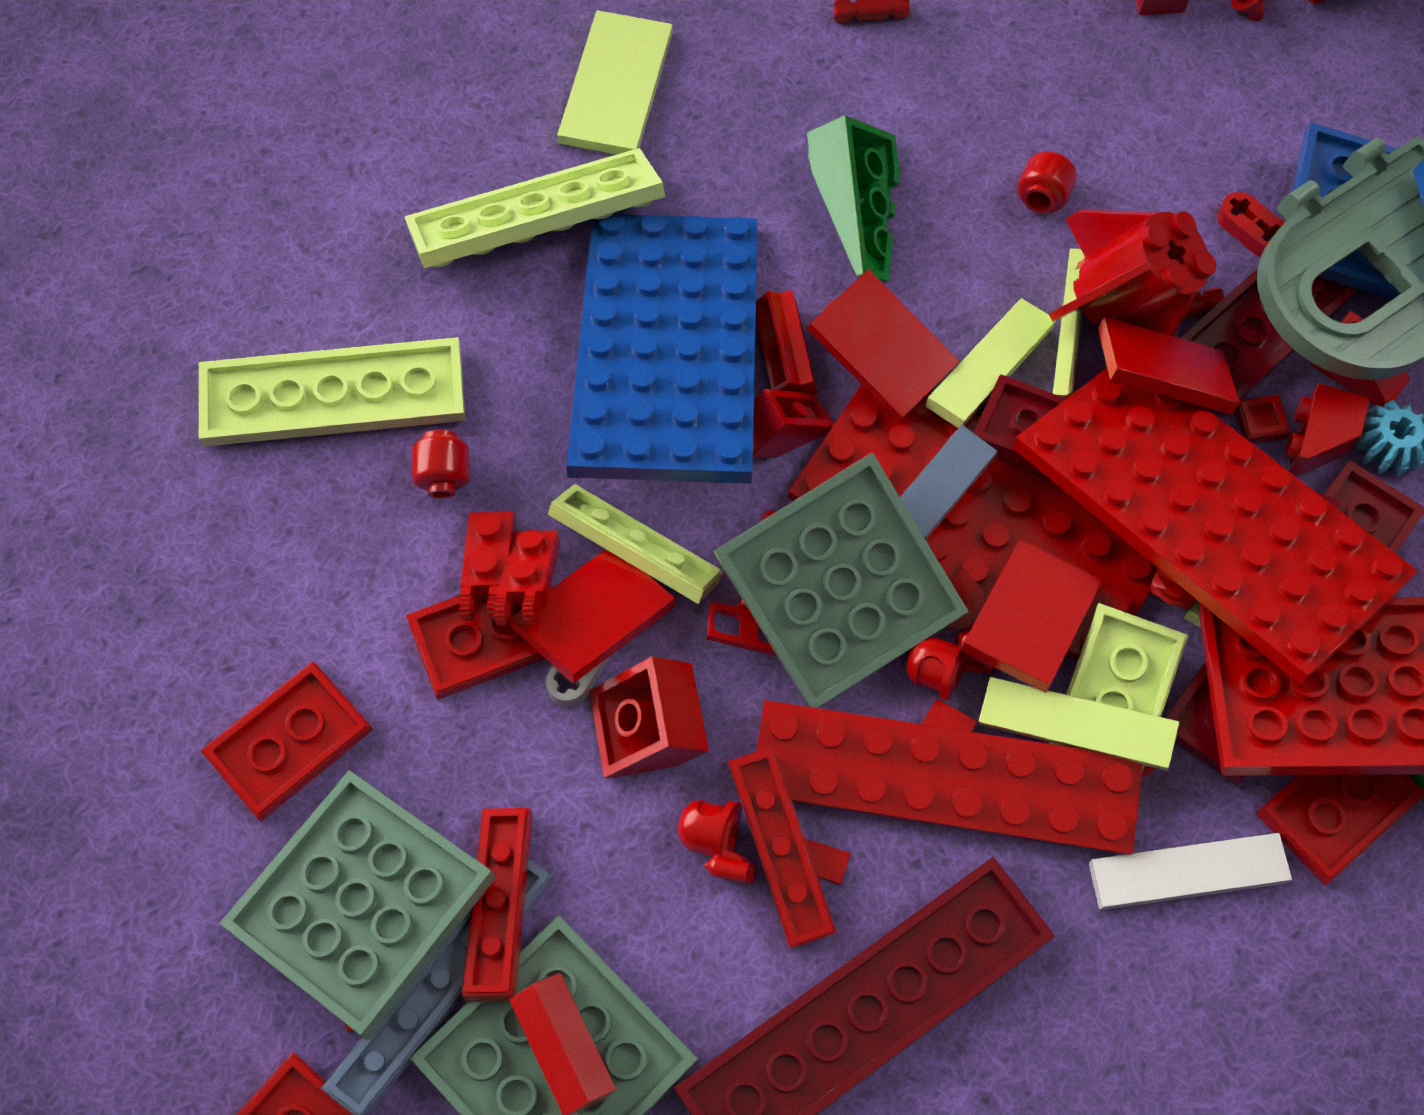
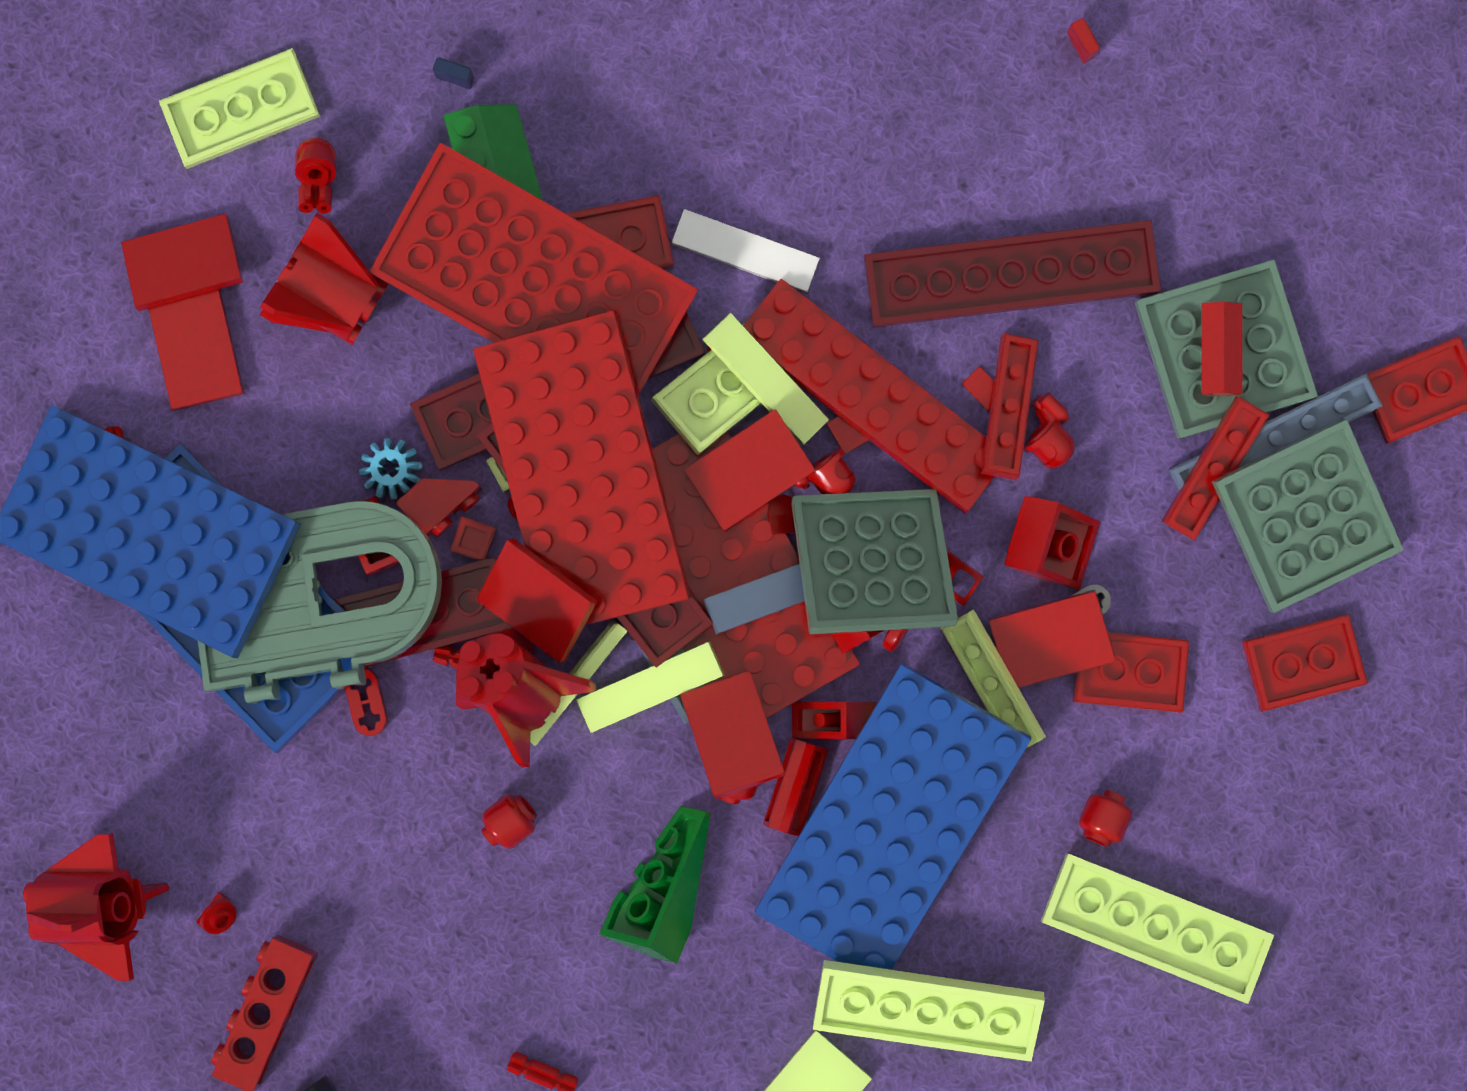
camera: 155 degrees left, 20 degrees up
(484, 559) = (1107, 721): red hinge -> none
(527, 575) = (1086, 691): red hinge -> none

